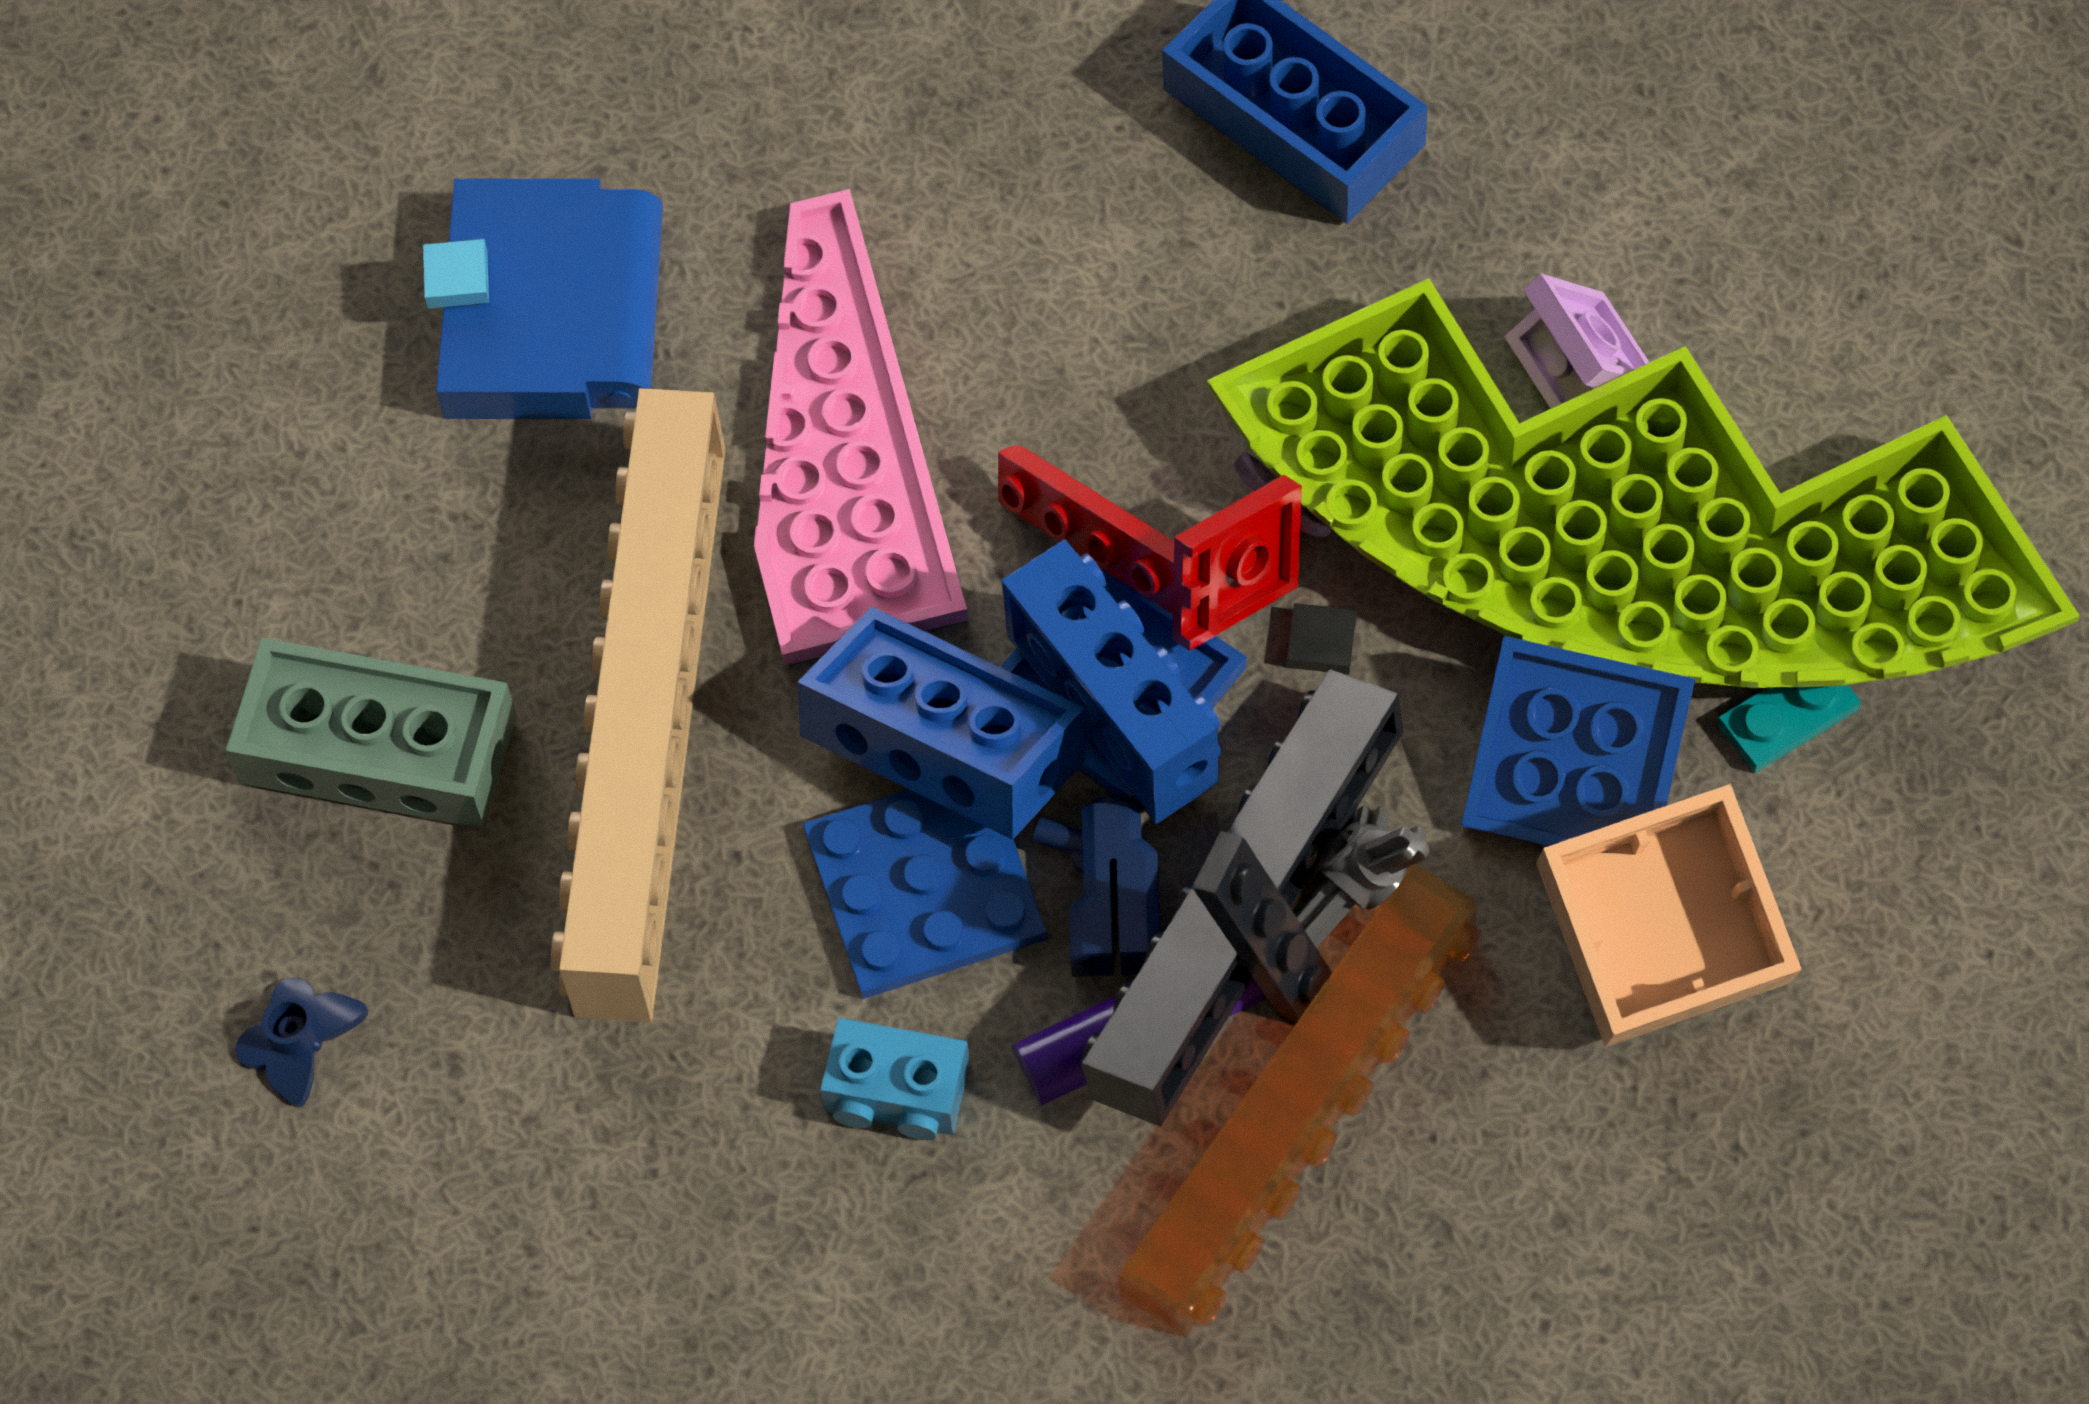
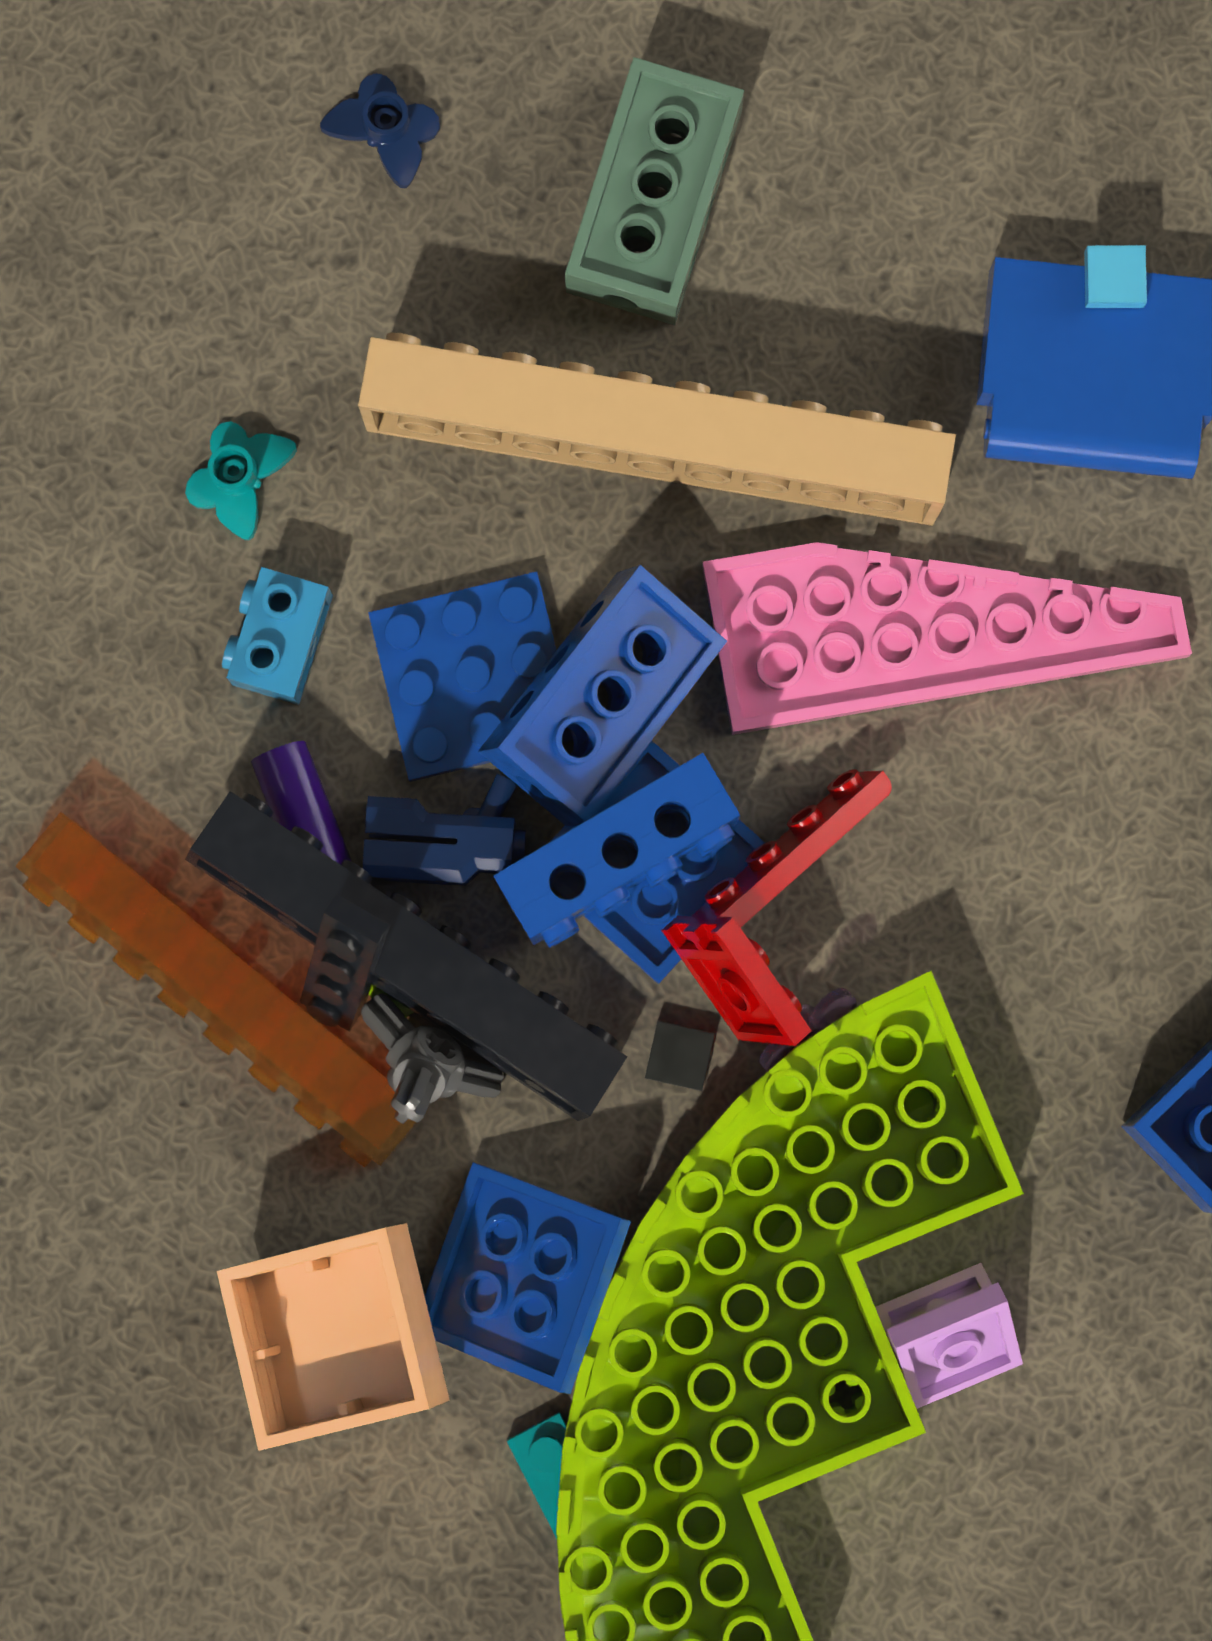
camera: 90 degrees right, 20 degrees up
(711, 1152) = (236, 473): none -> teal animal

